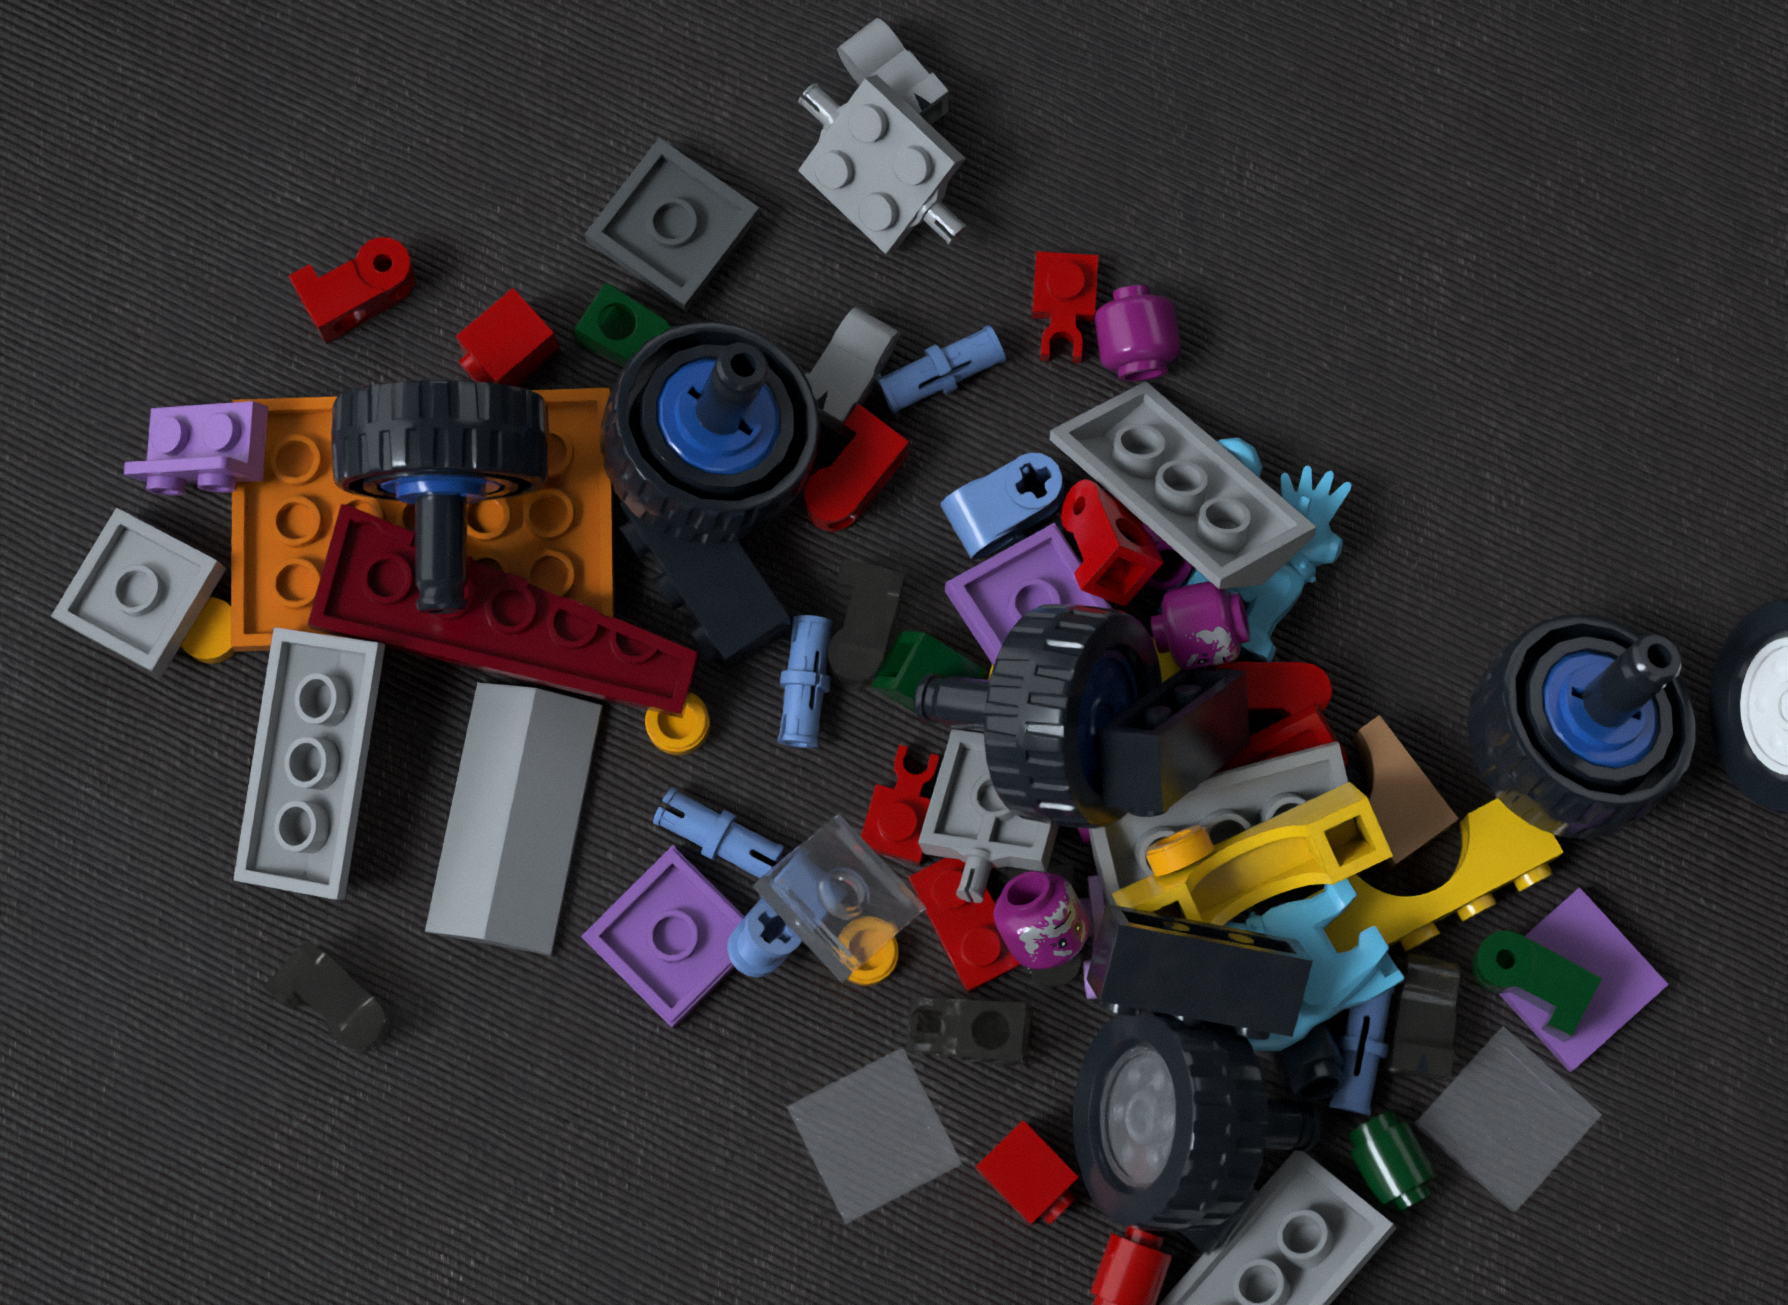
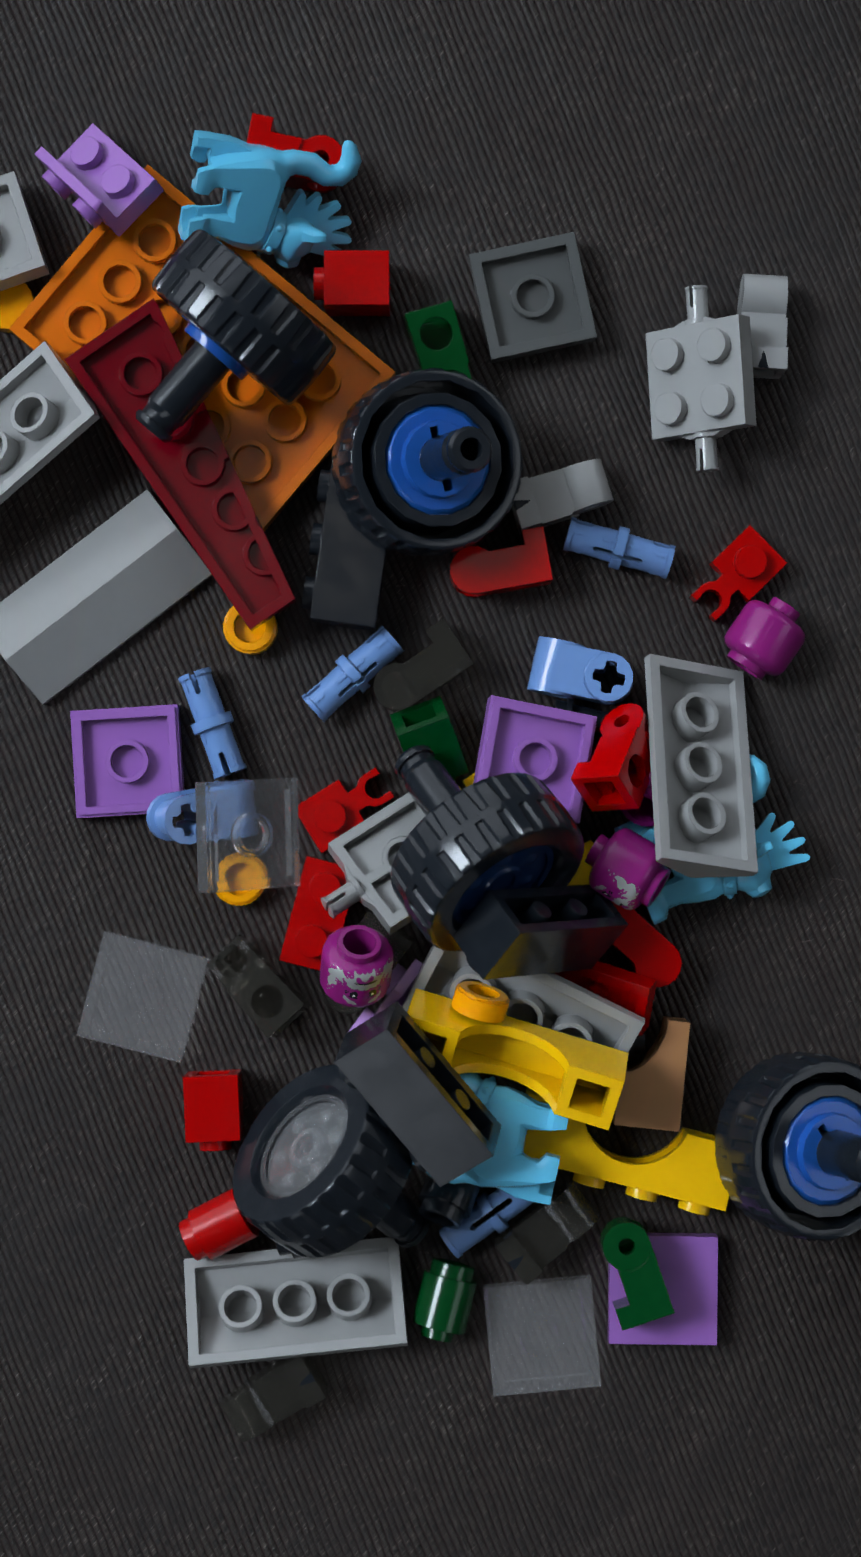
camera: 35 degrees right, 10 degrees up
(349, 338) = (252, 192): none -> medium azure animal

